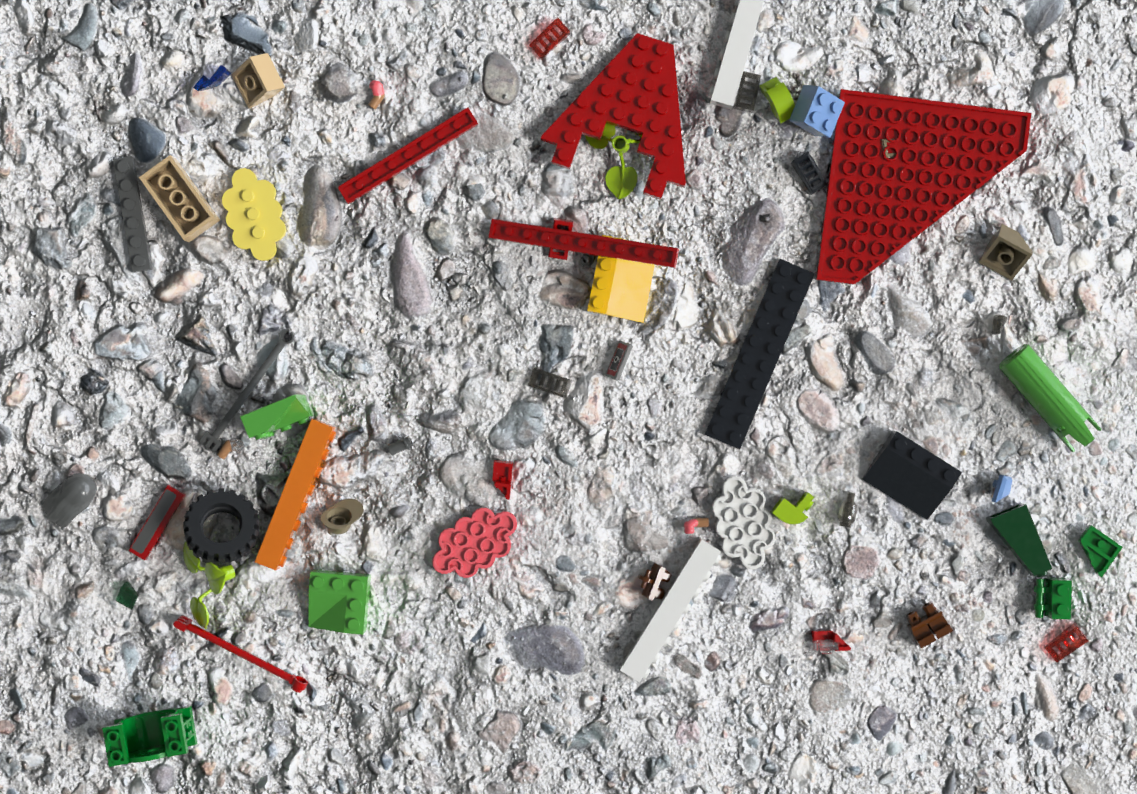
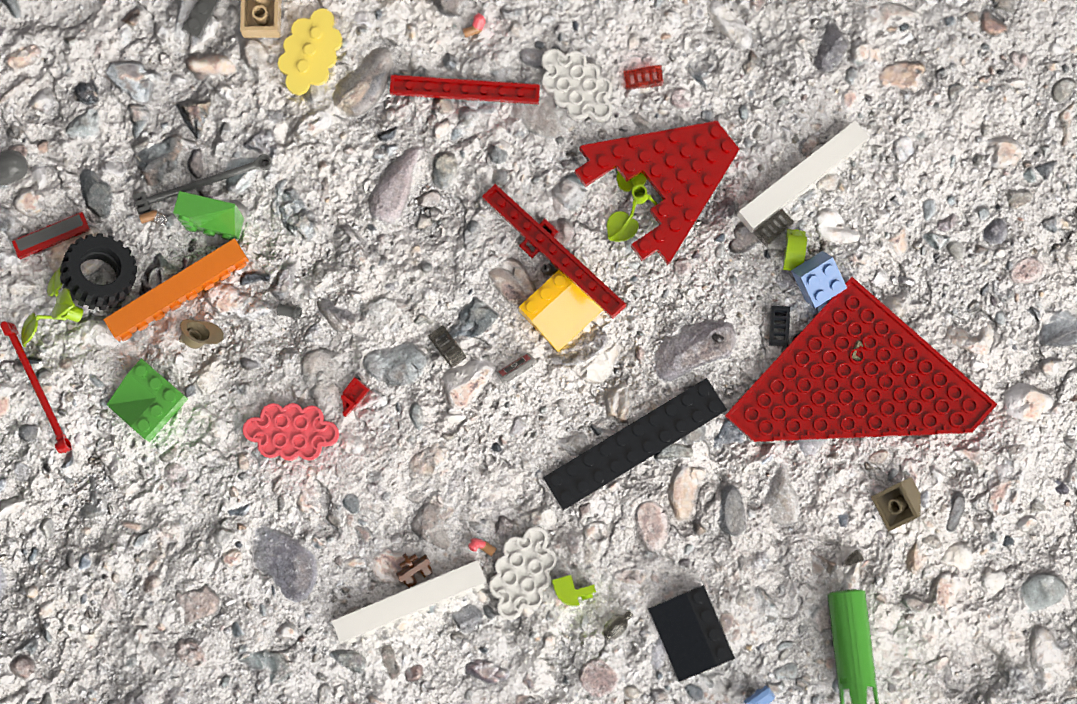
camera: 40 degrees right, 10 degrees down
(498, 85) = (576, 85): none -> white plate

